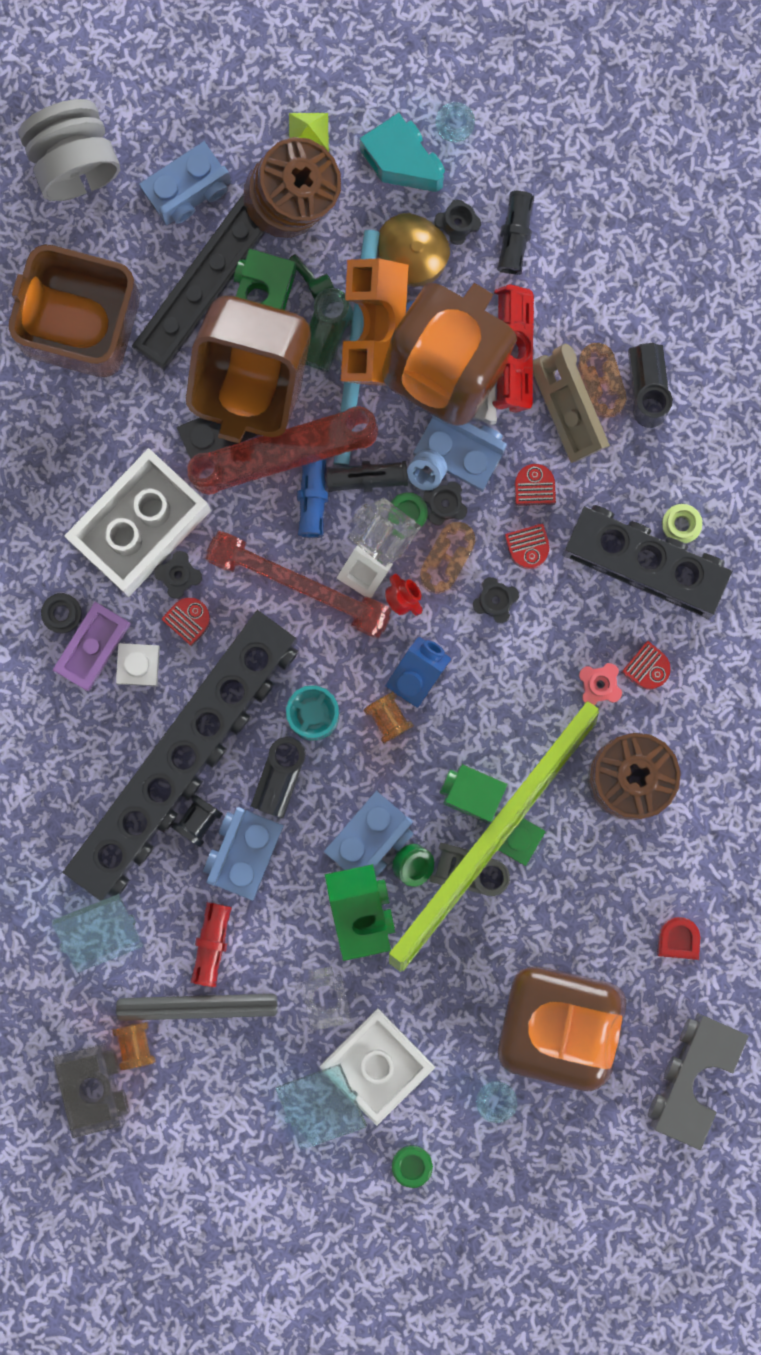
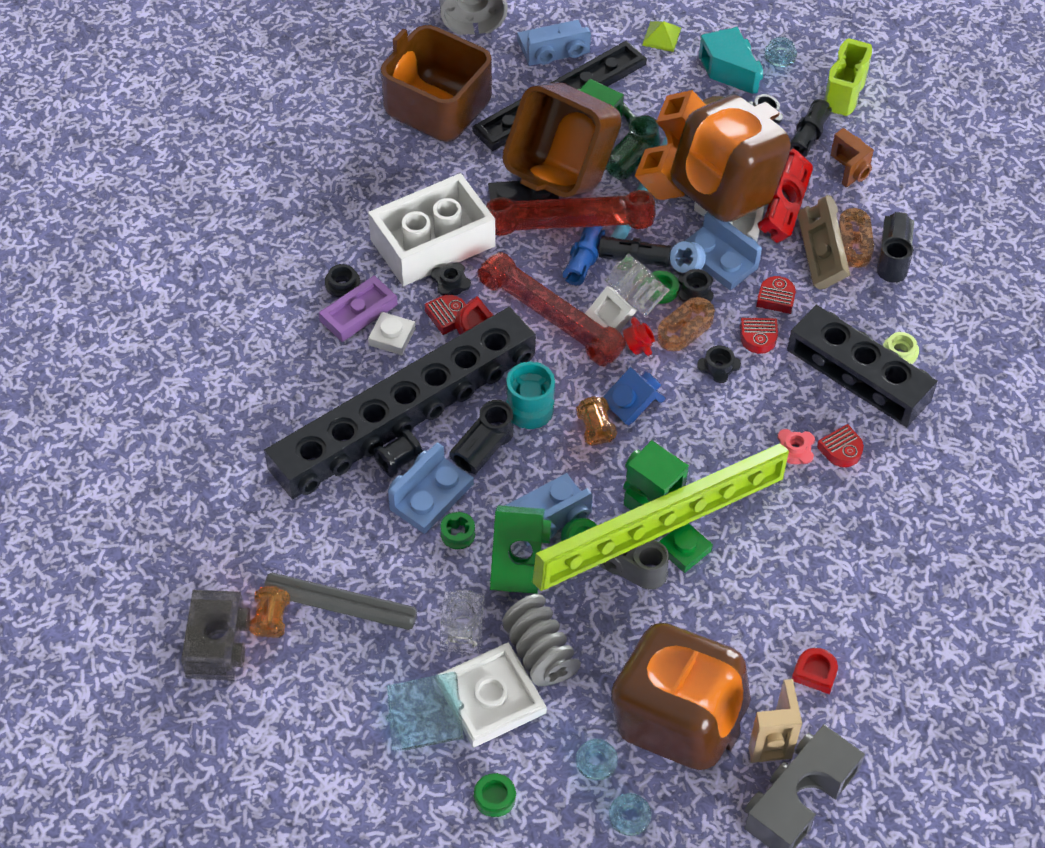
camera: 20 degrees right, 30 degrees down
(97, 933) = (274, 512): clear light blue piece -> none
(211, 944) = (372, 553): red pin -> none
(221, 624) = (471, 315): none -> red tile
(274, 199) = (637, 49): reddish brown wheel -> none
(280, 880) = (461, 540): none -> green bush
(409, 1002) = (539, 642): none -> light grey piece
(544, 149) = (848, 76): none -> lime brick
(546, 1161) = (630, 802): none -> clear light blue plate
(573, 260) = (852, 154): none -> dark orange bracket
(612, 766) = (806, 512): reddish brown wheel -> none
(665, 1040) = (777, 730): none -> tan panel

